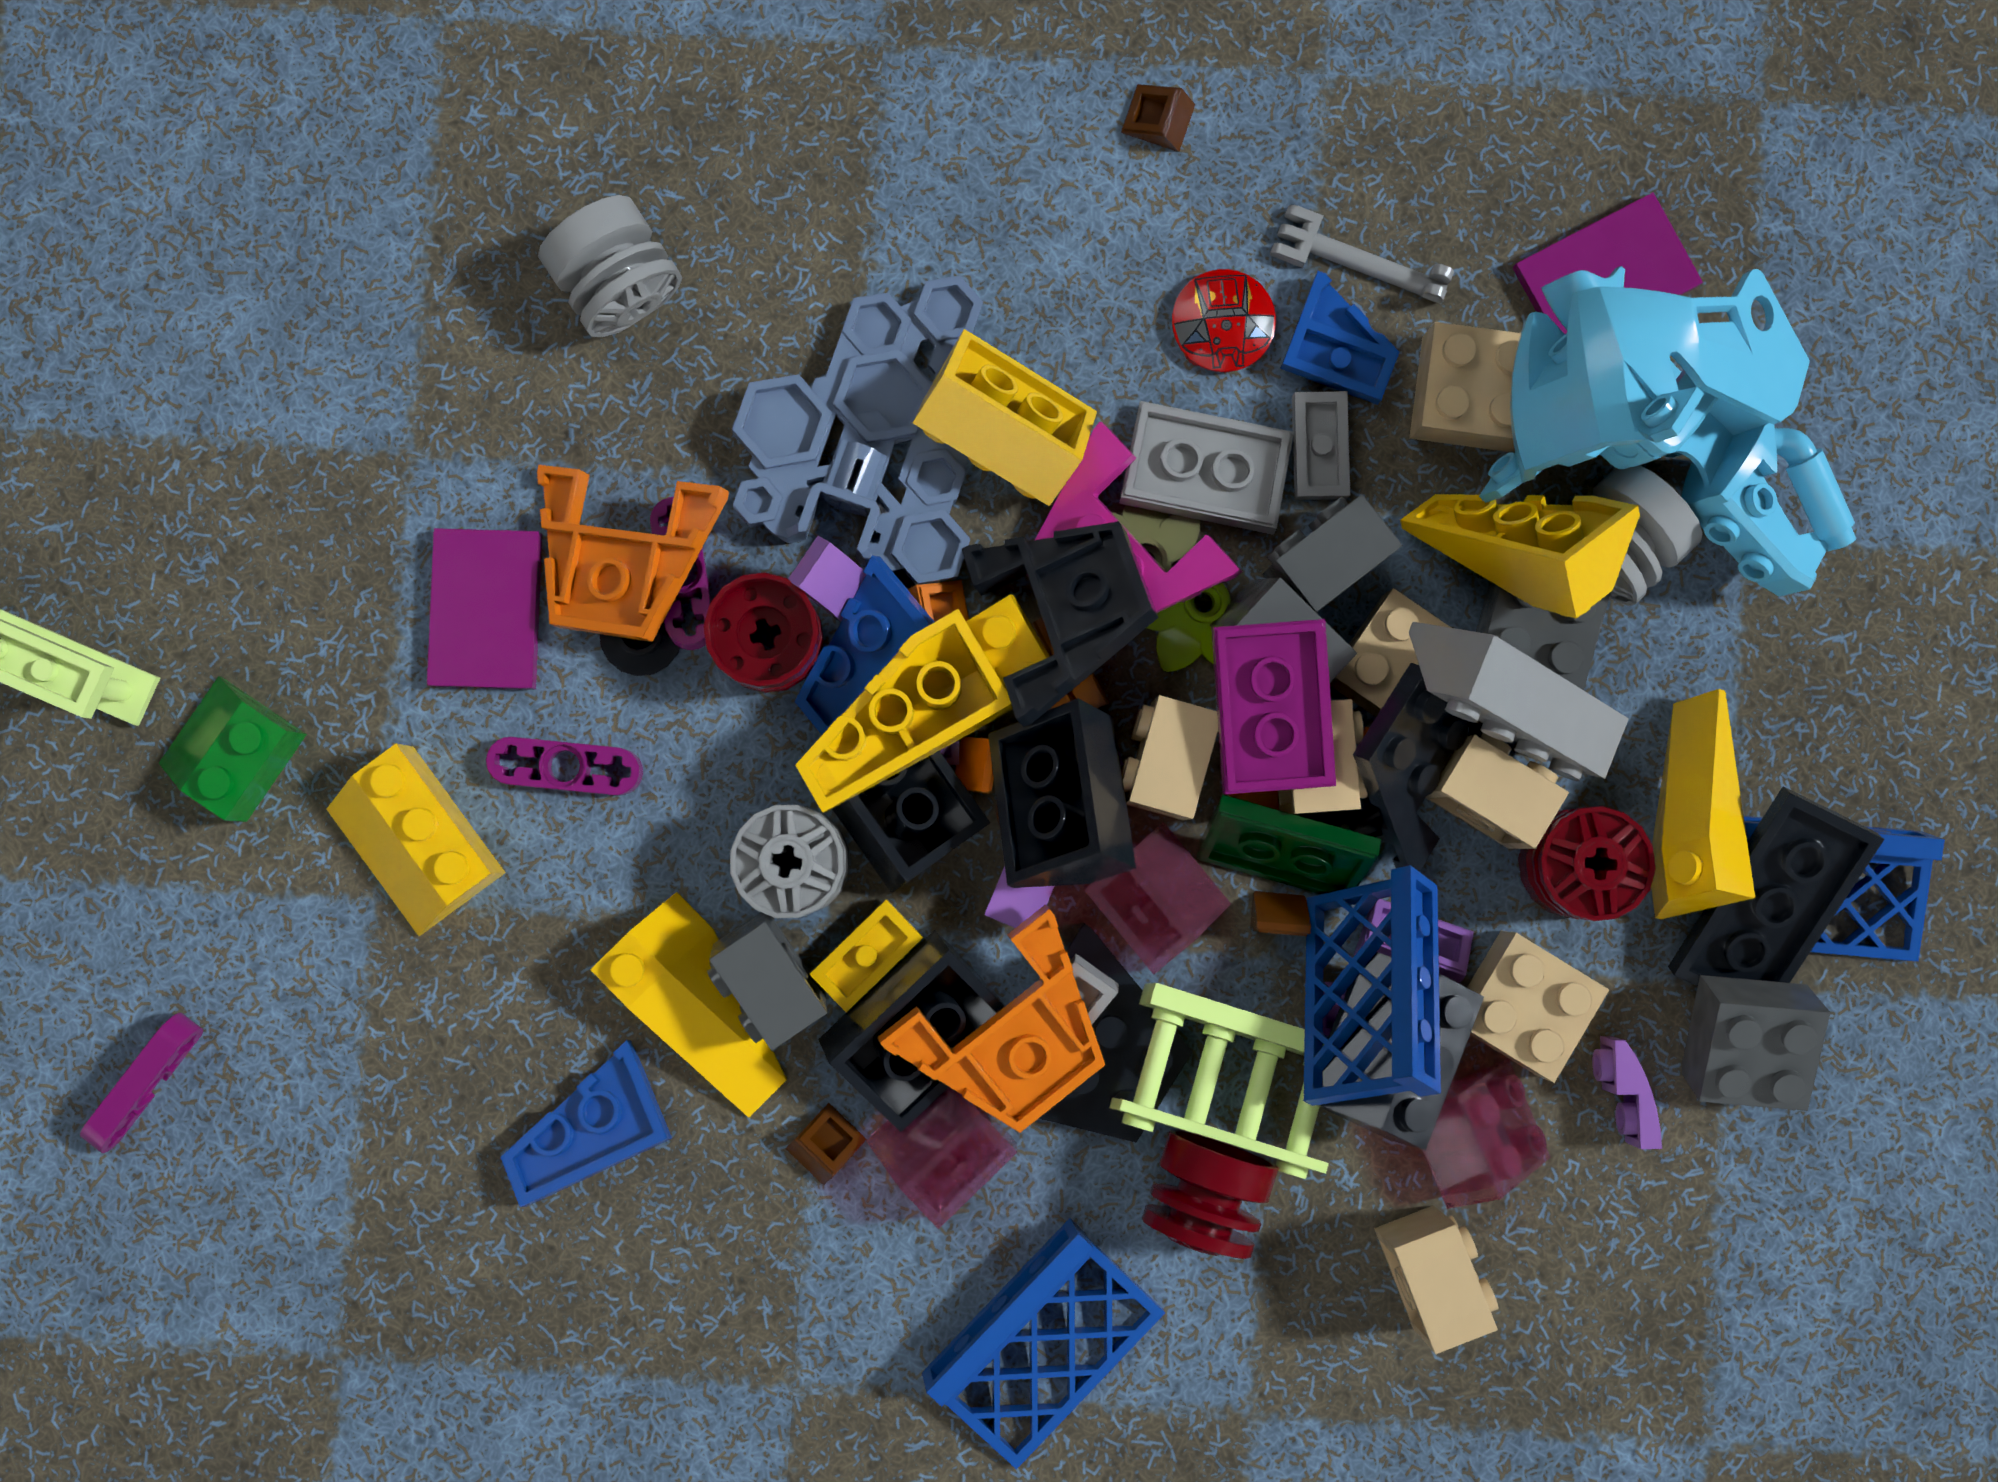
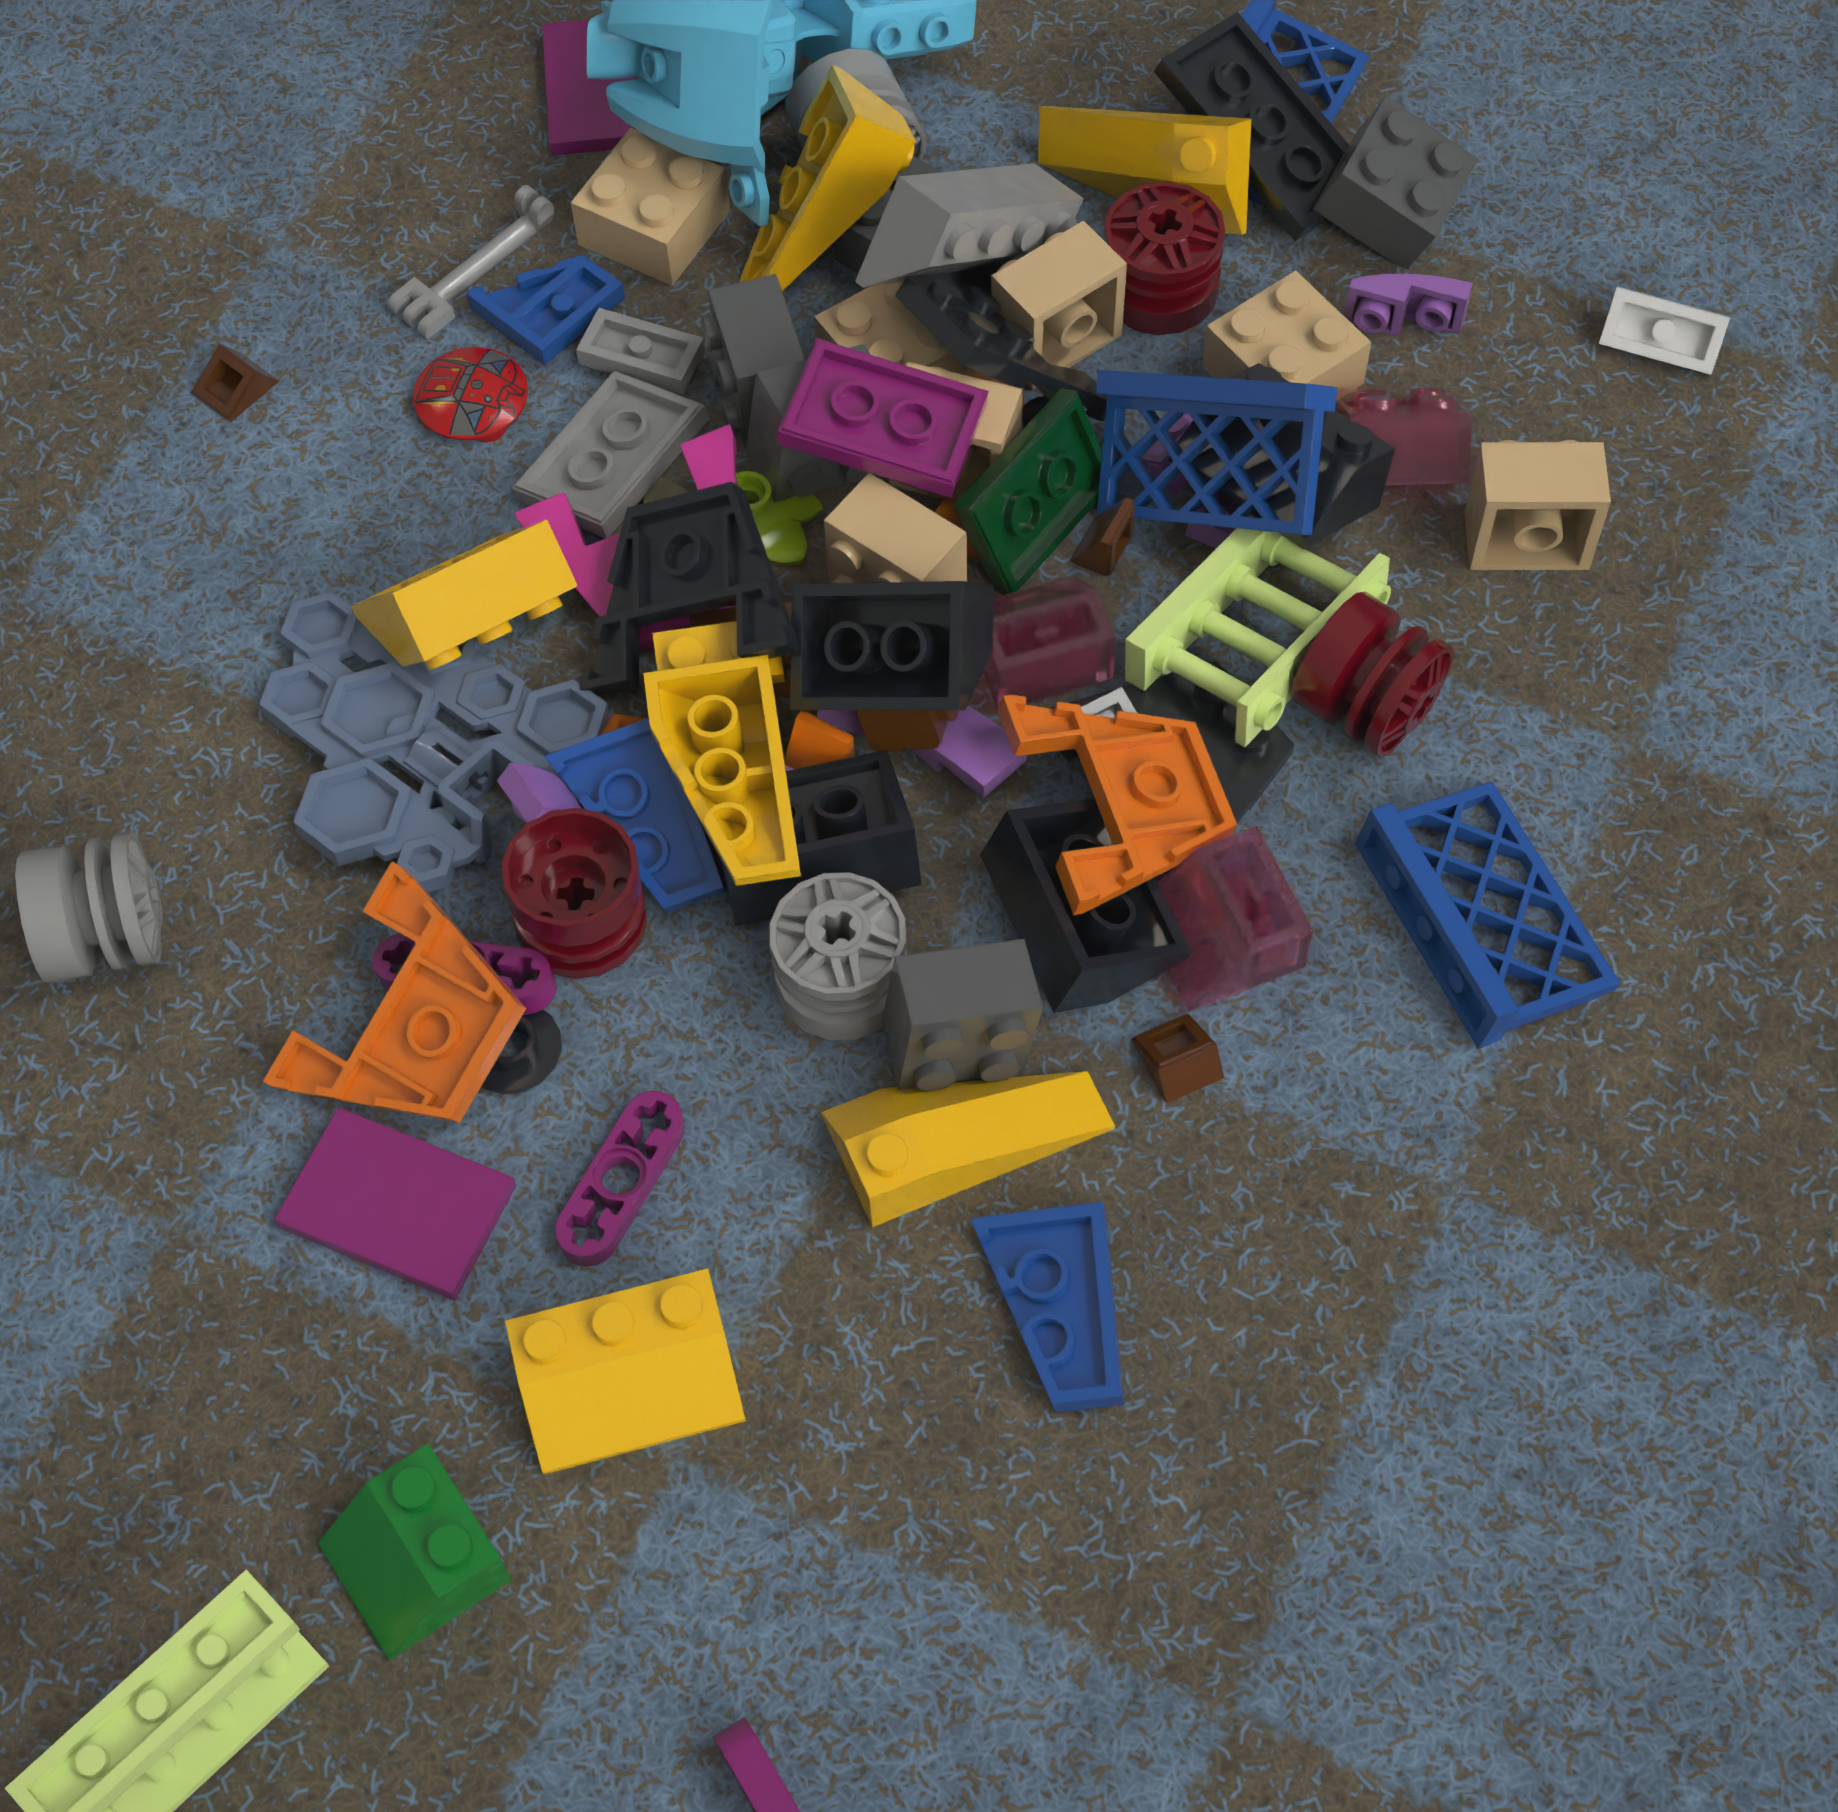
camera: 65 degrees left, 25 degrees down
(866, 955) = (970, 910): yellow plate -> none
(1688, 1327) = (1664, 330): none -> white plate

